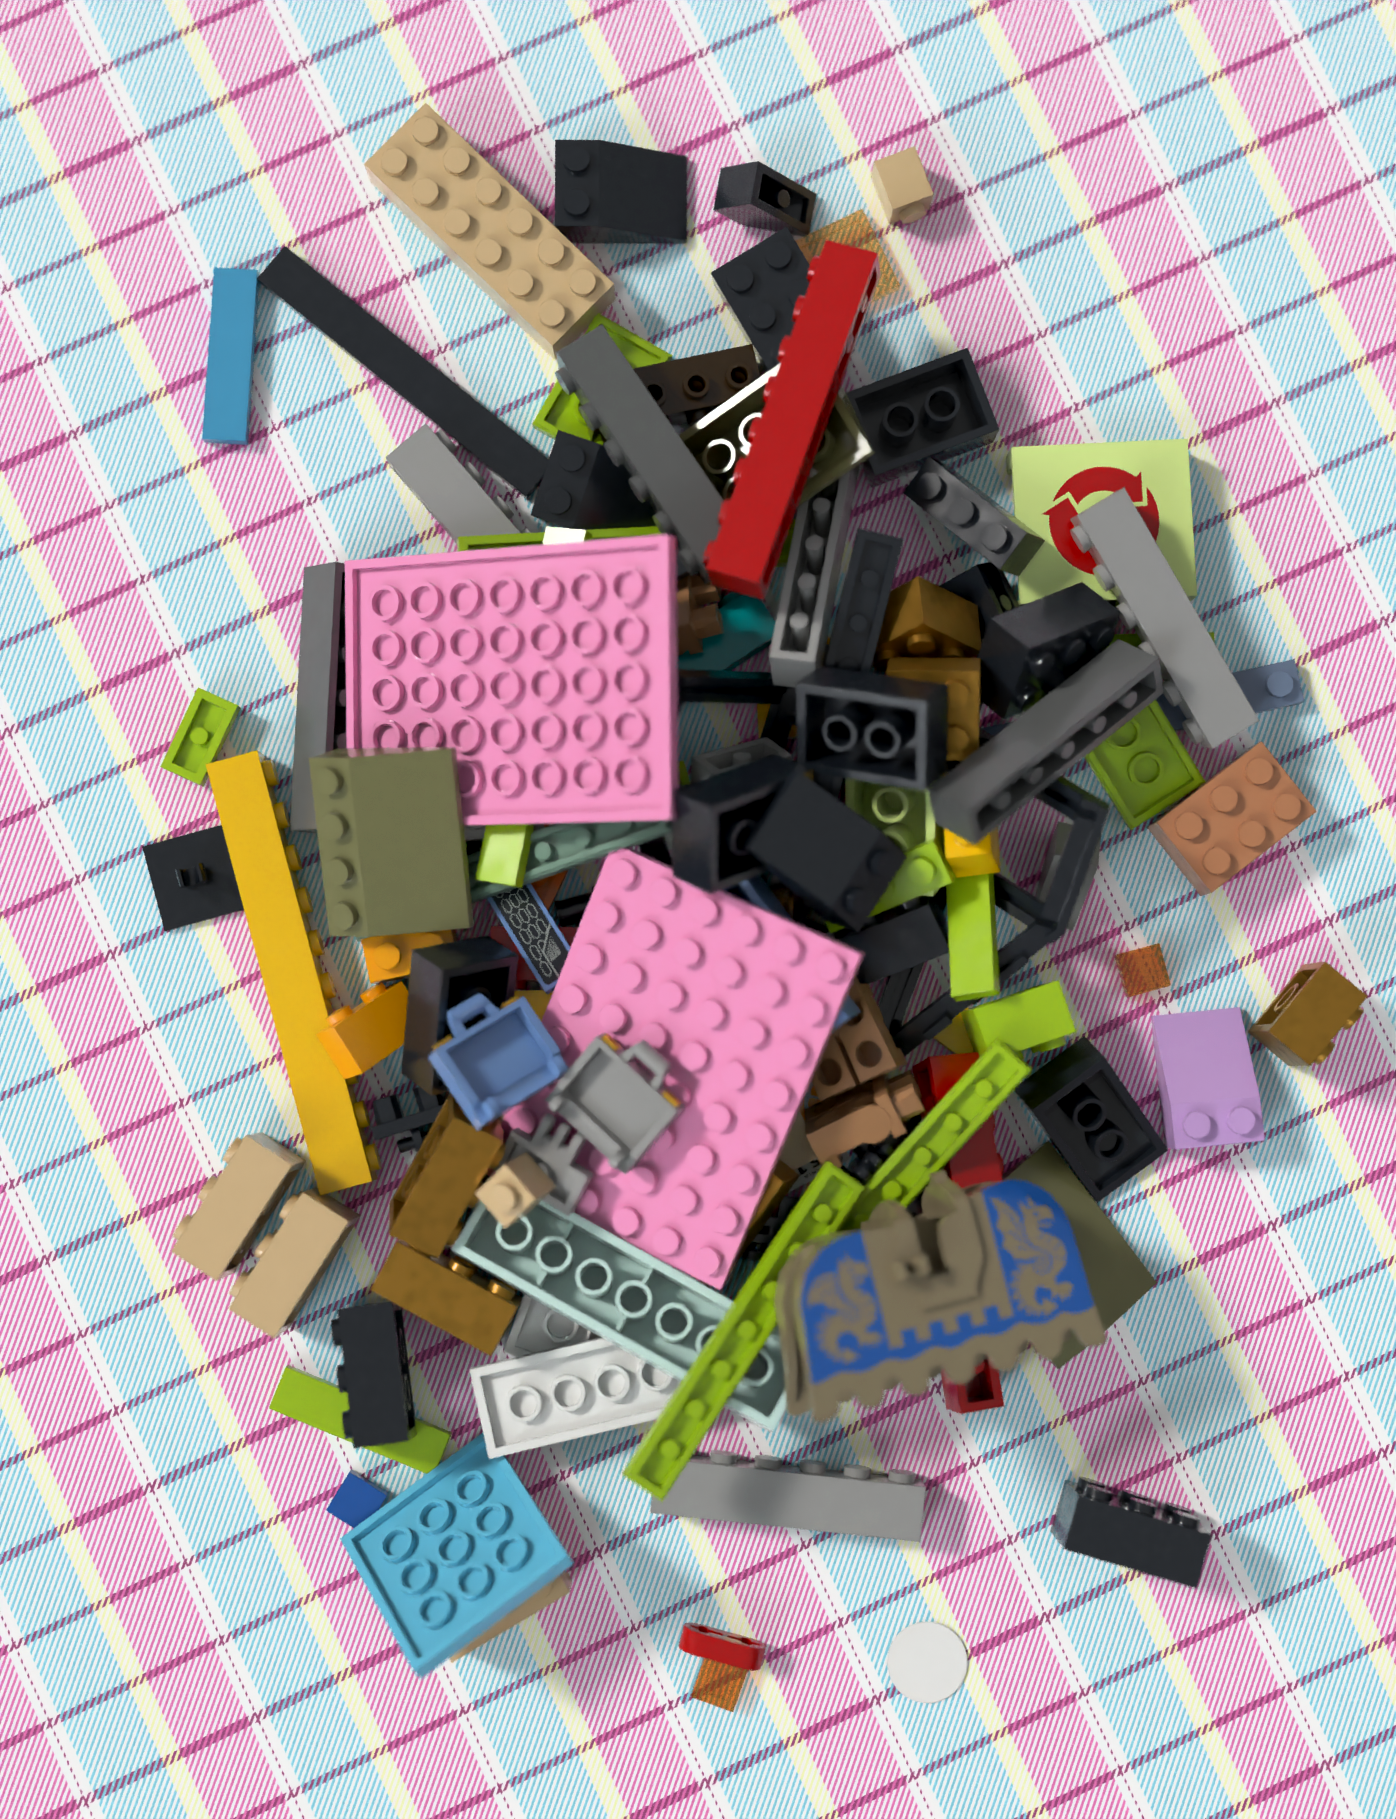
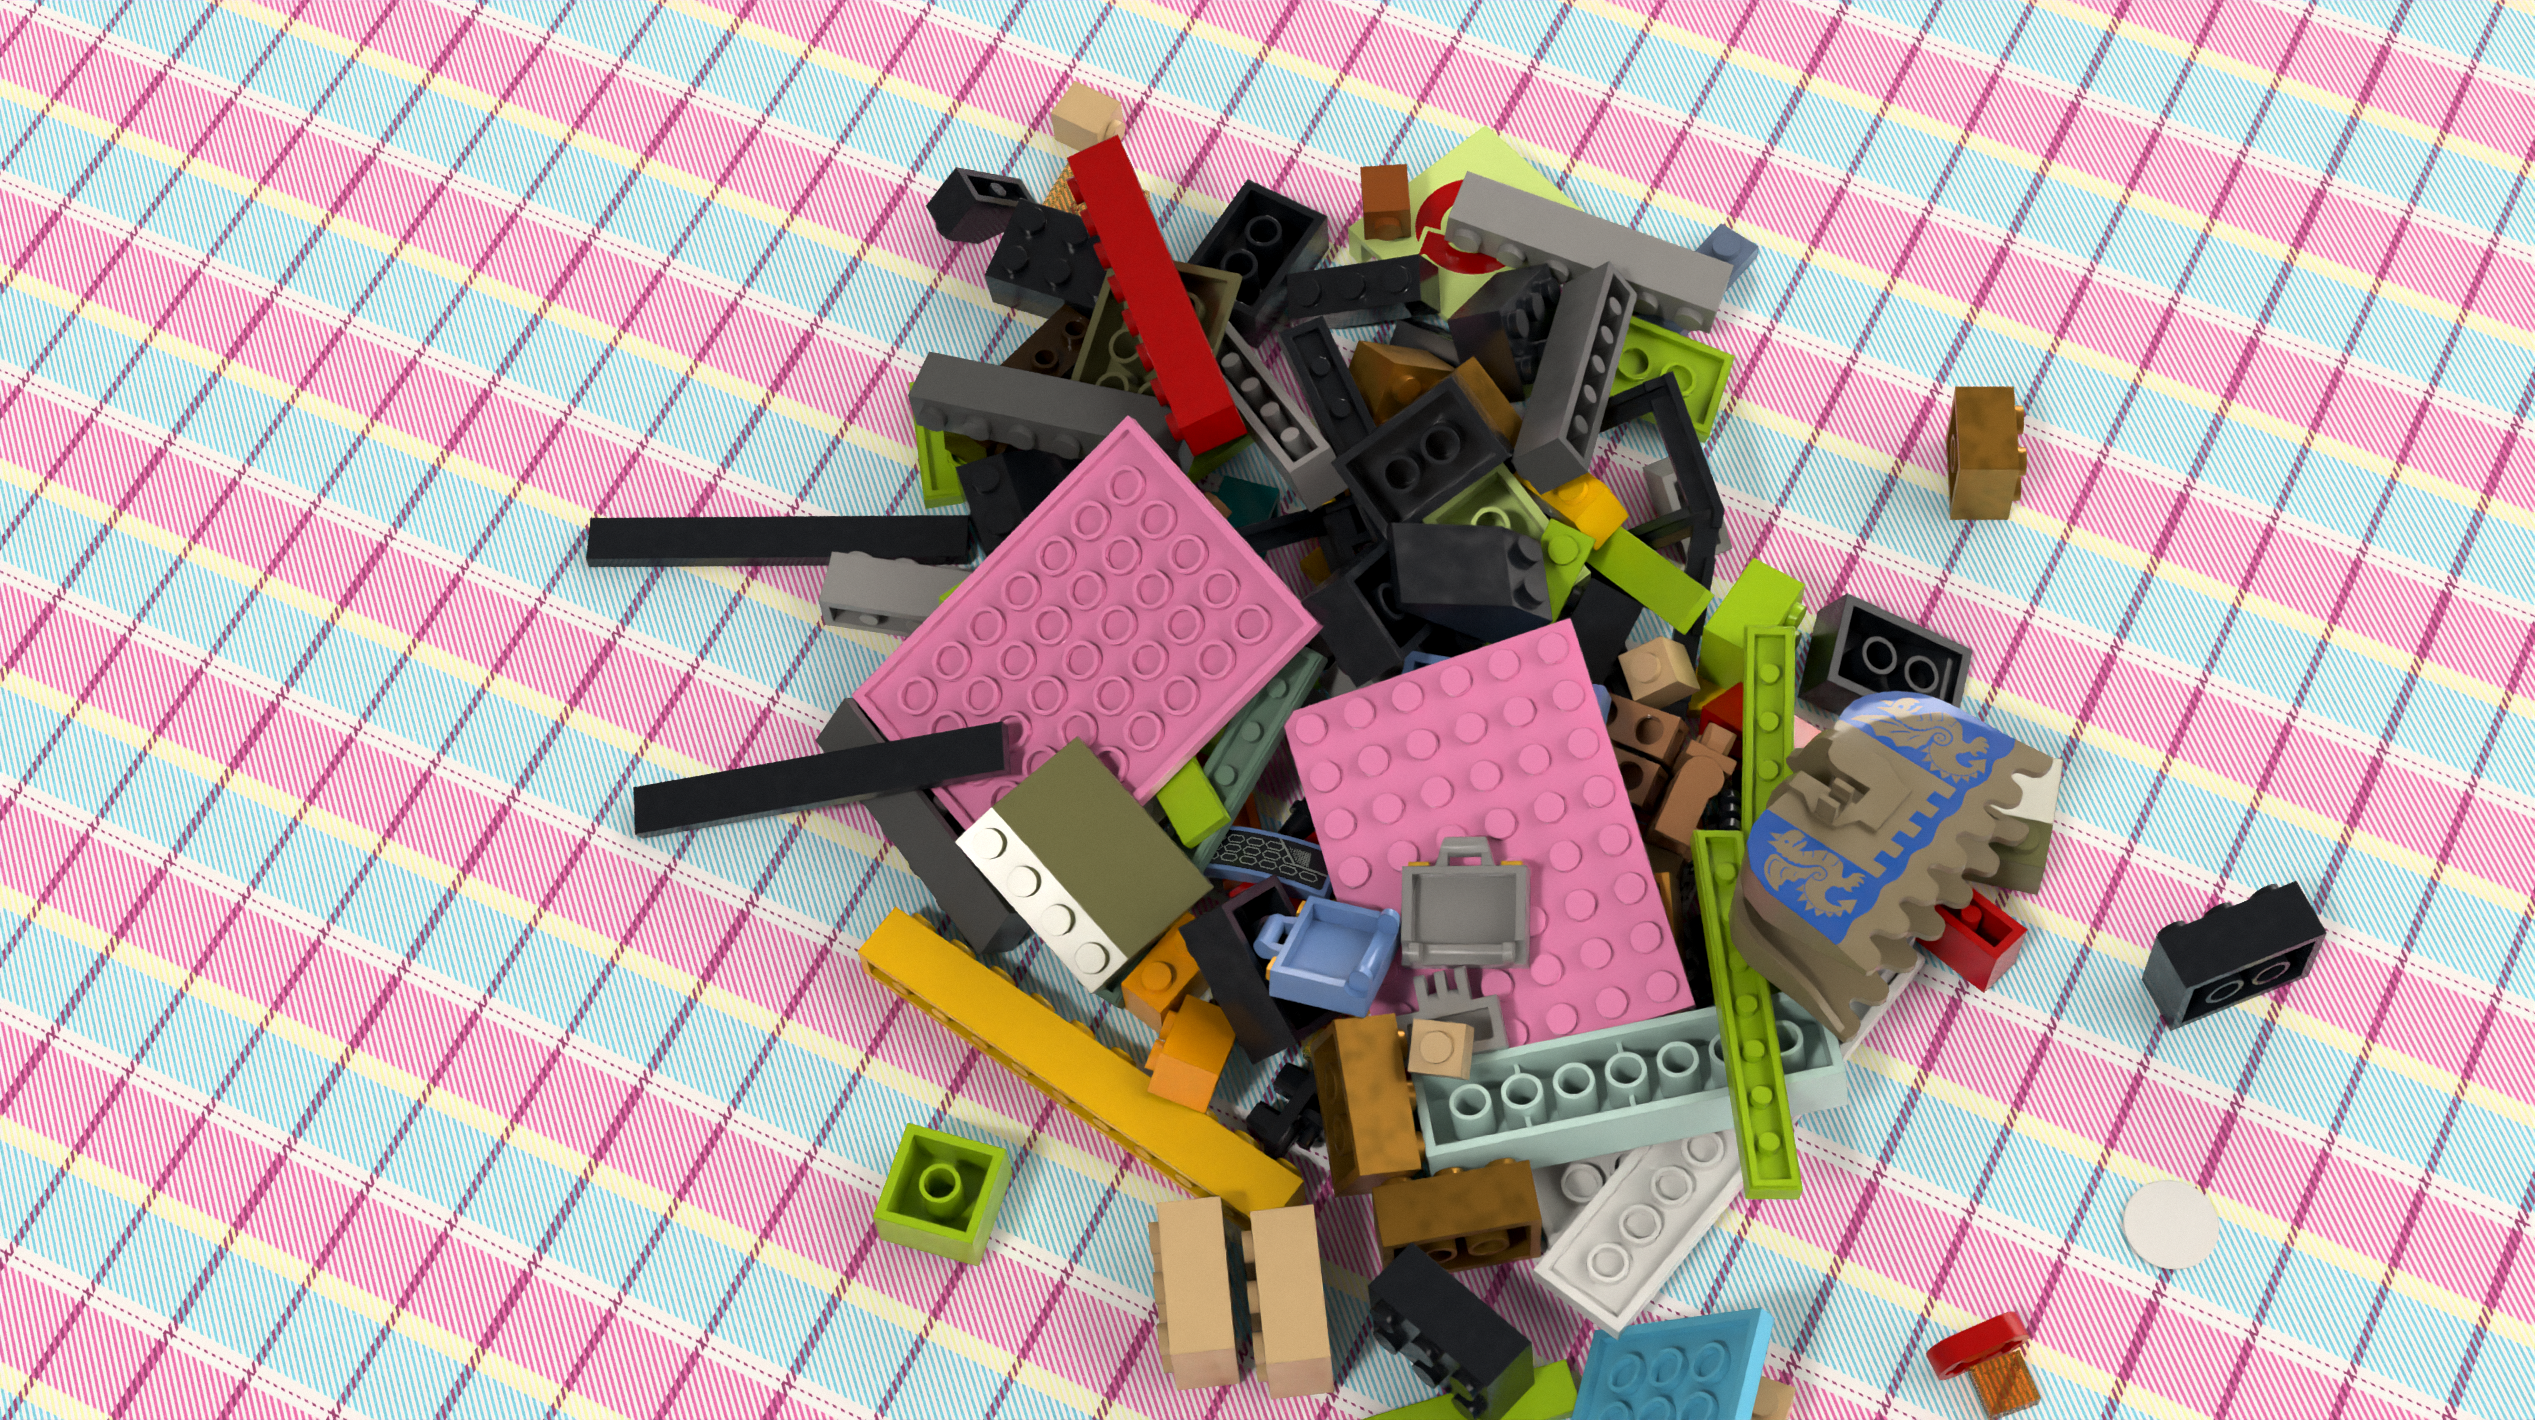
camera: 30 degrees left, 25 degrees down
(129, 992) = (943, 1194): none -> lime brick
(193, 878) = (921, 1069): black piece -> none
(200, 736) = (831, 946): lime plate -> none
(231, 356) = (610, 636): dark azure tile -> none
(276, 614) = (822, 780): none -> black tile
(490, 231) = (766, 383): tan brick -> none
(619, 193) = (850, 287): black slope -> none
(798, 1496) = (1913, 1168): light grey brick -> none
(916, 1012) = (1659, 673): none -> tan brick
(1050, 454) = (1385, 202): none -> dark orange brick
(1142, 970) = (1818, 533): clear orange tile -> none
(1206, 1079) = (1954, 574): lavender slope -> none
(1231, 819) = (1781, 366): nougat brick -> none

